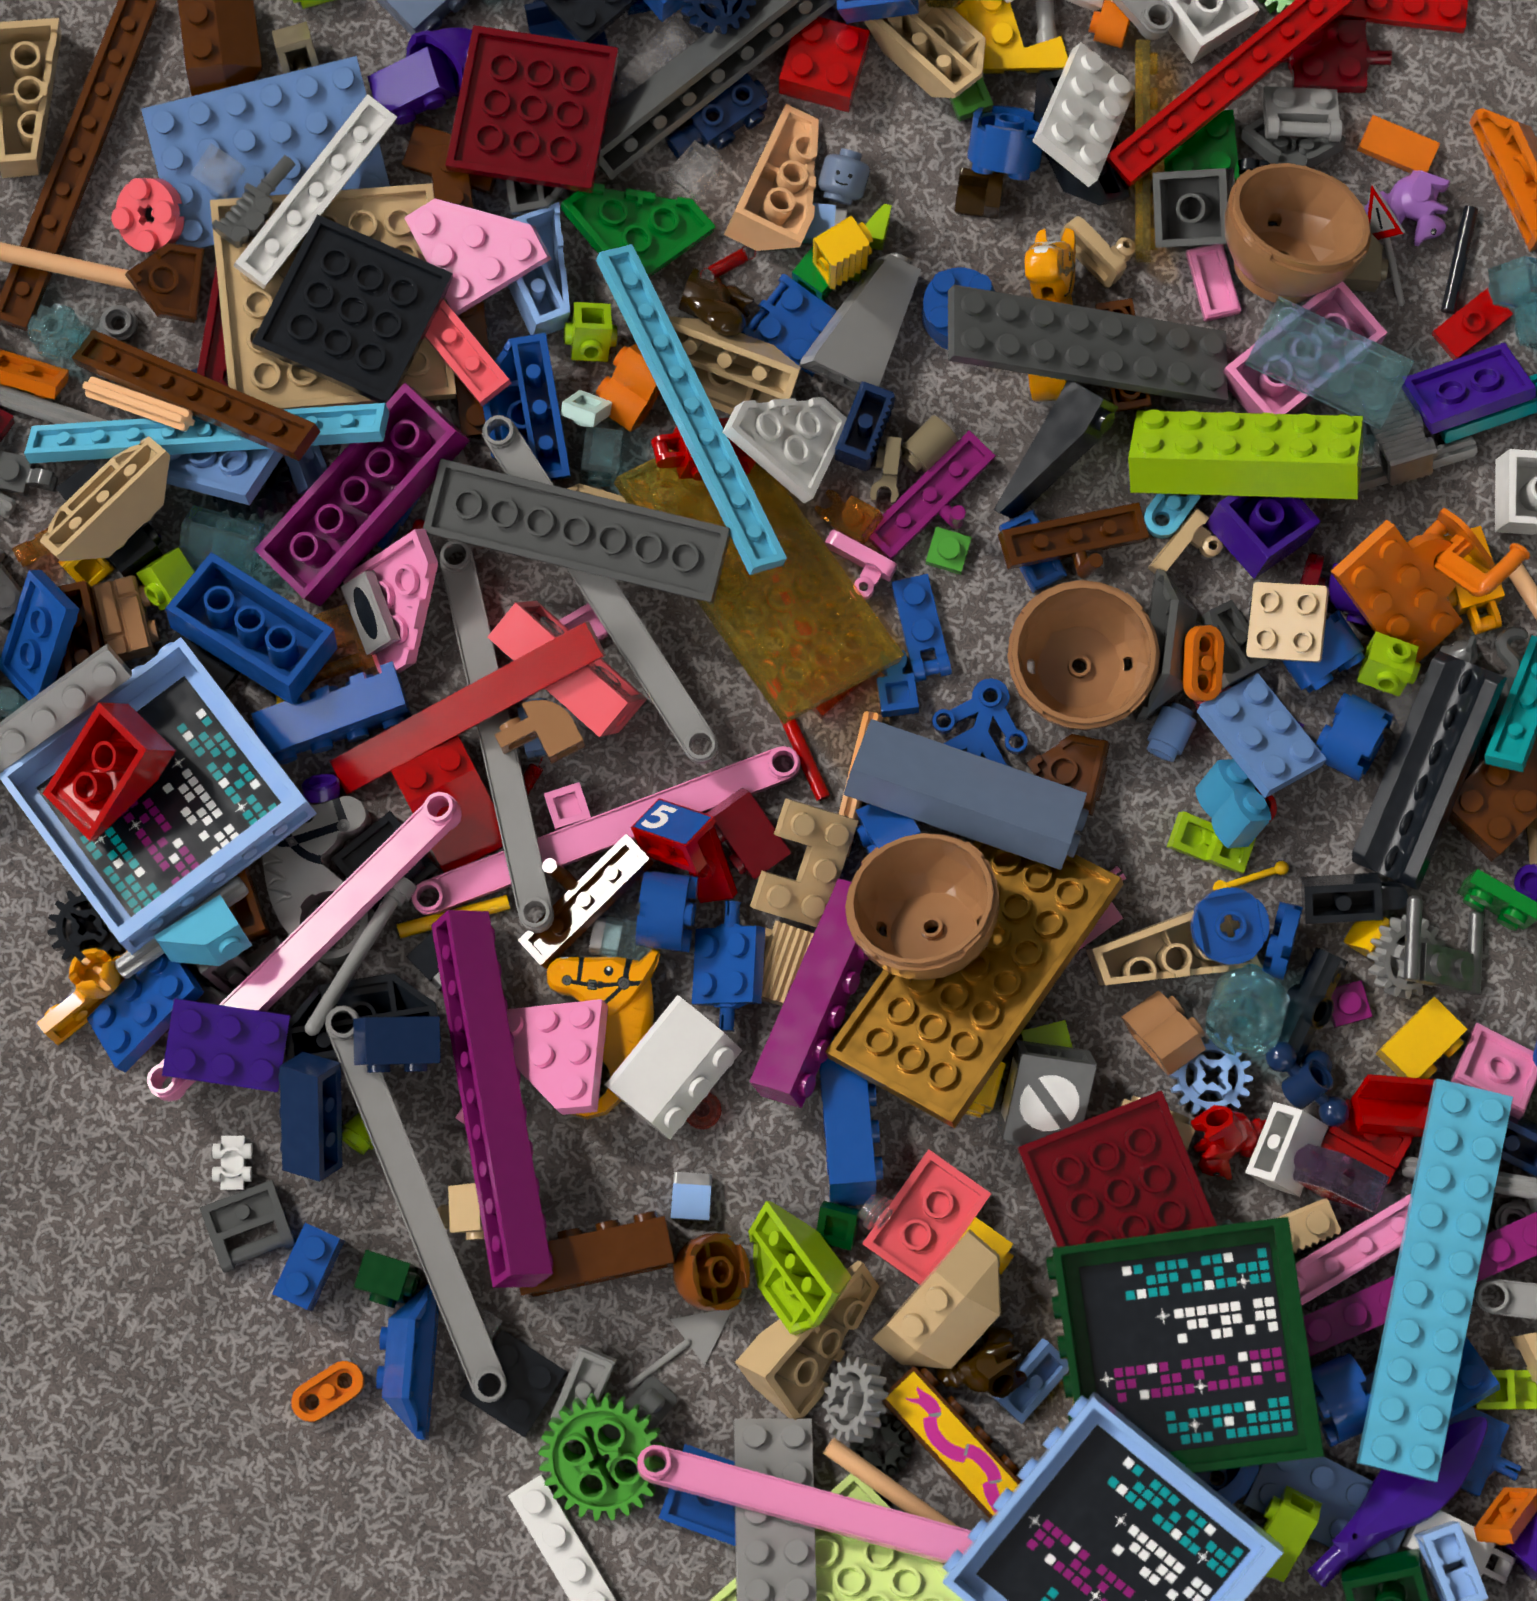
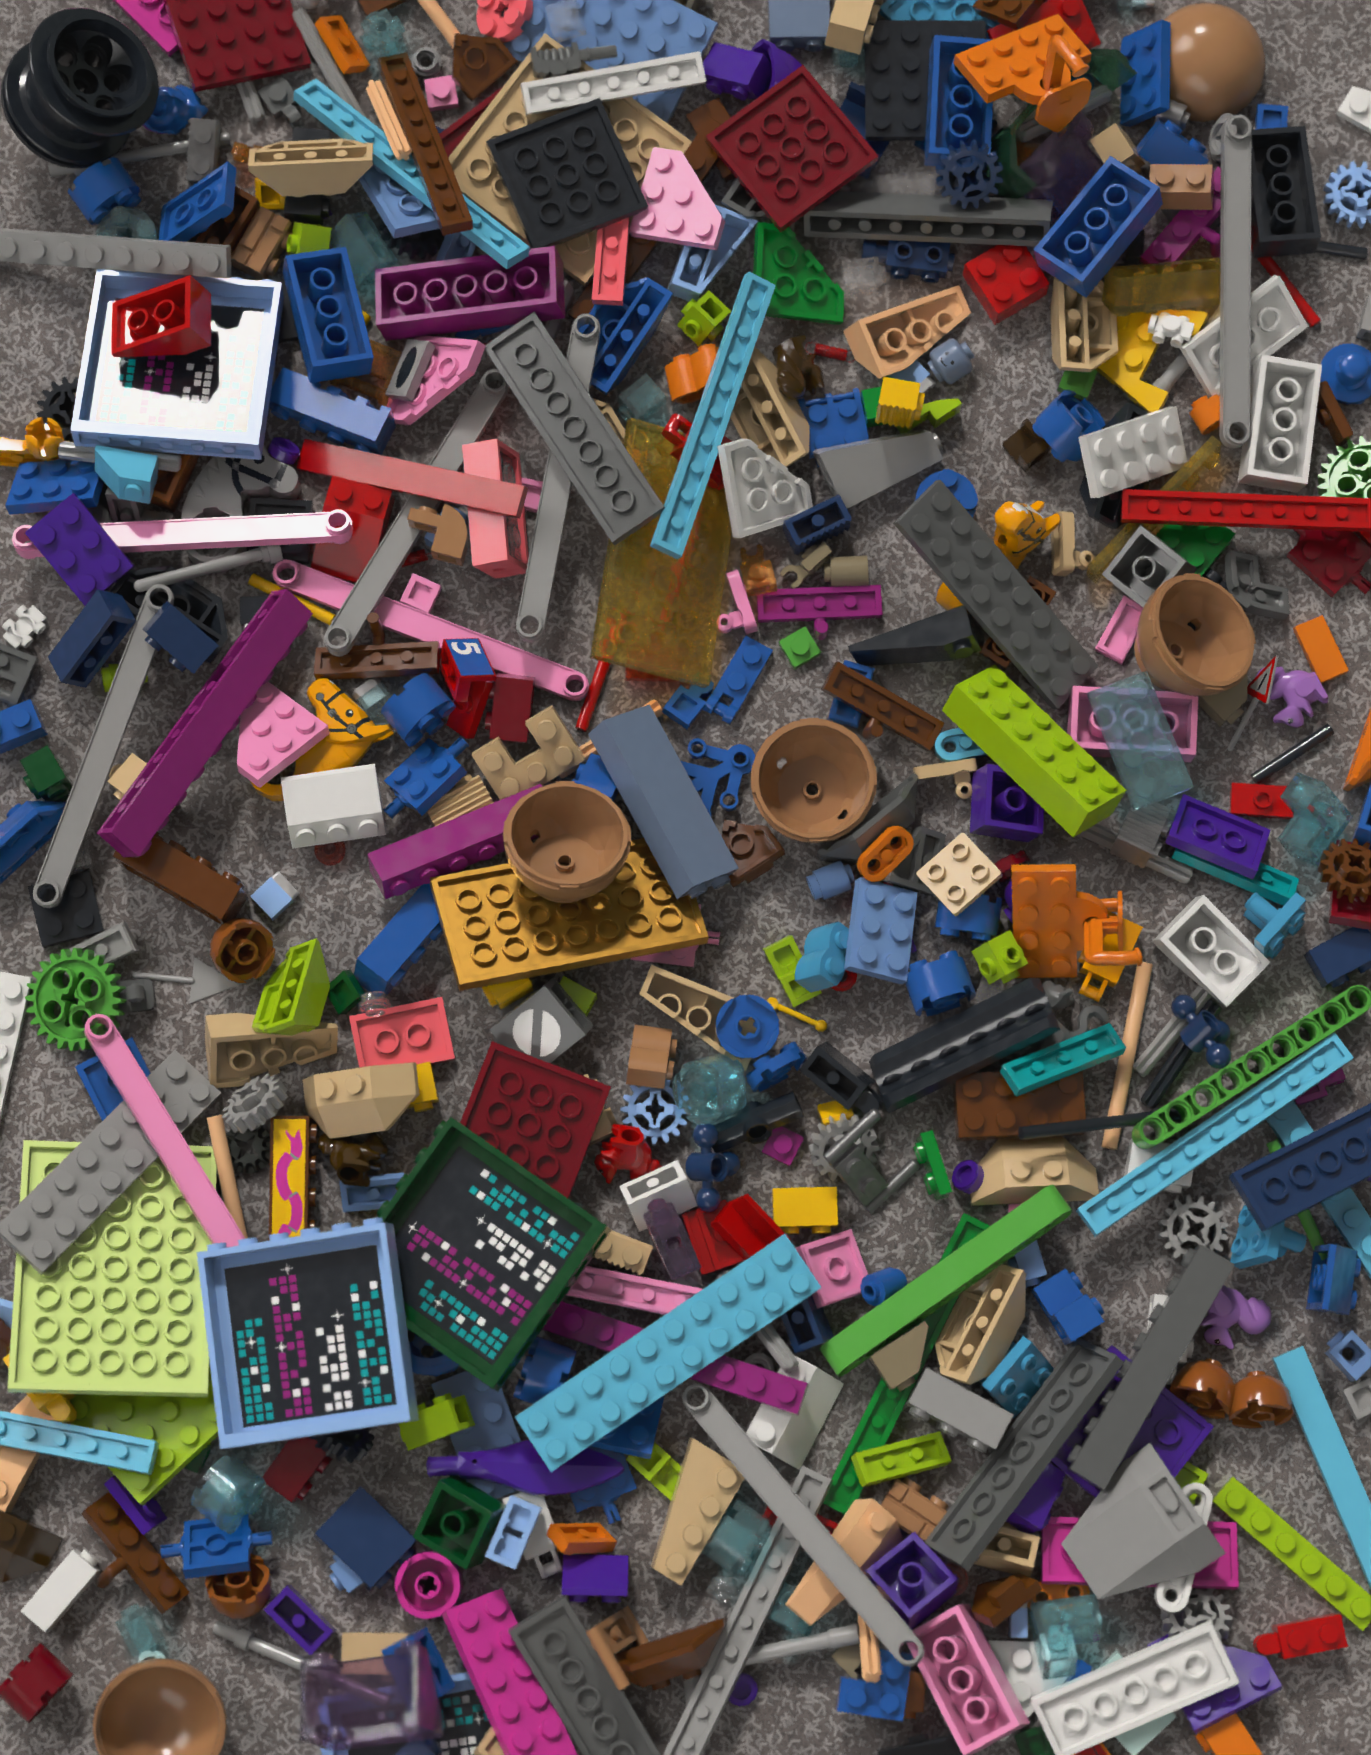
camera: 40 degrees right, 0 degrees up
(158, 338) = (441, 93): none -> bright pink plate
(586, 409) = (655, 361): light aqua plate -> none
(1301, 113) = (1276, 573): light grey plate -> none

